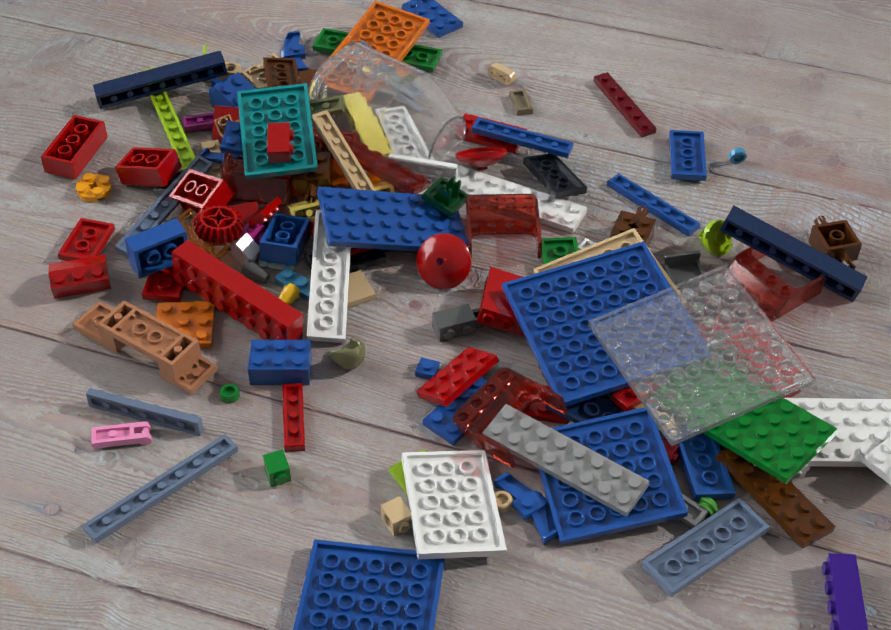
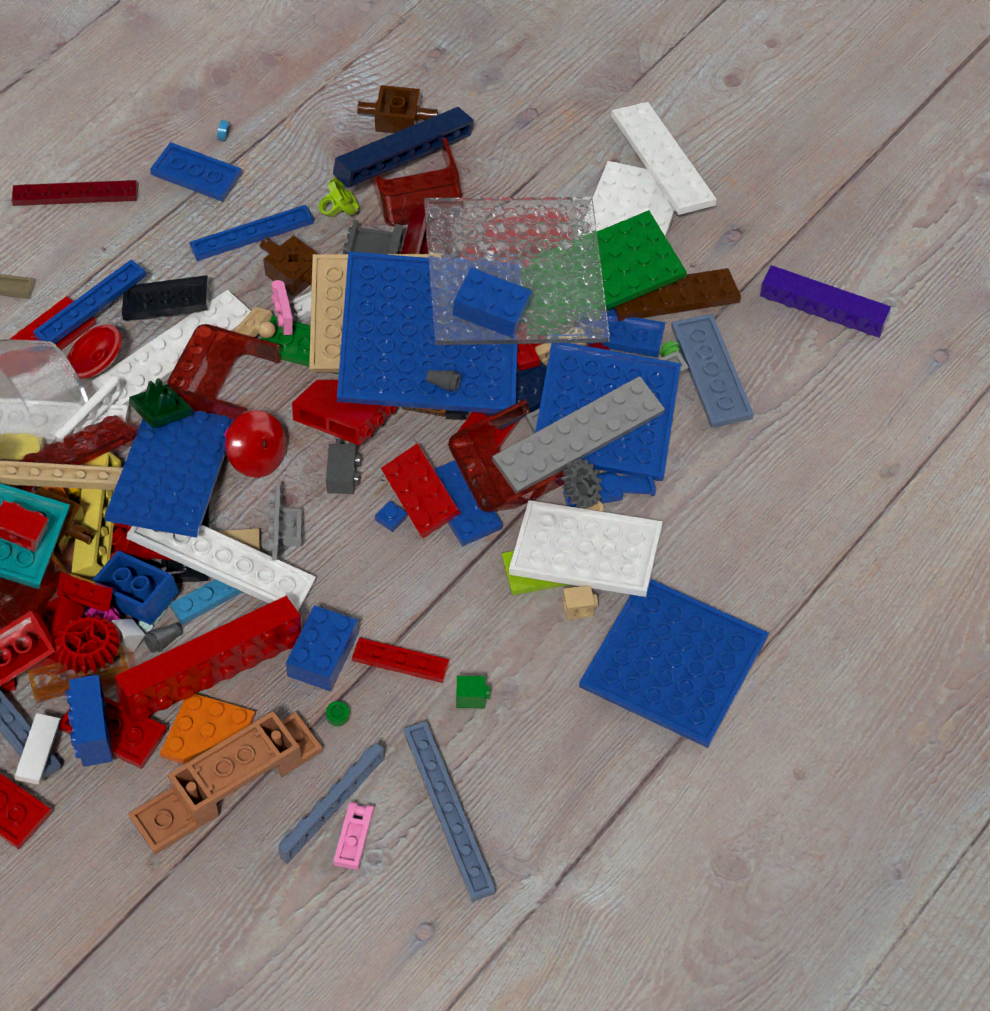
camera: 70 degrees left, 10 degrees up
(79, 276) = (71, 825): red slope -> none
(117, 236) = (37, 749): none -> white tile
(289, 293) = (217, 612): yellow cone -> none
(350, 355) = (341, 578): olive hair -> none
(381, 302) = (285, 524): none -> light grey bracket
(502, 478) = (581, 483): none -> dark grey gear
(556, 342) = (444, 379): none -> dark grey cone
(559, 231) = (257, 323): none -> tan plate
(582, 236) = (282, 306): none -> bright pink plate
(644, 340) = (491, 302): none -> blue brick

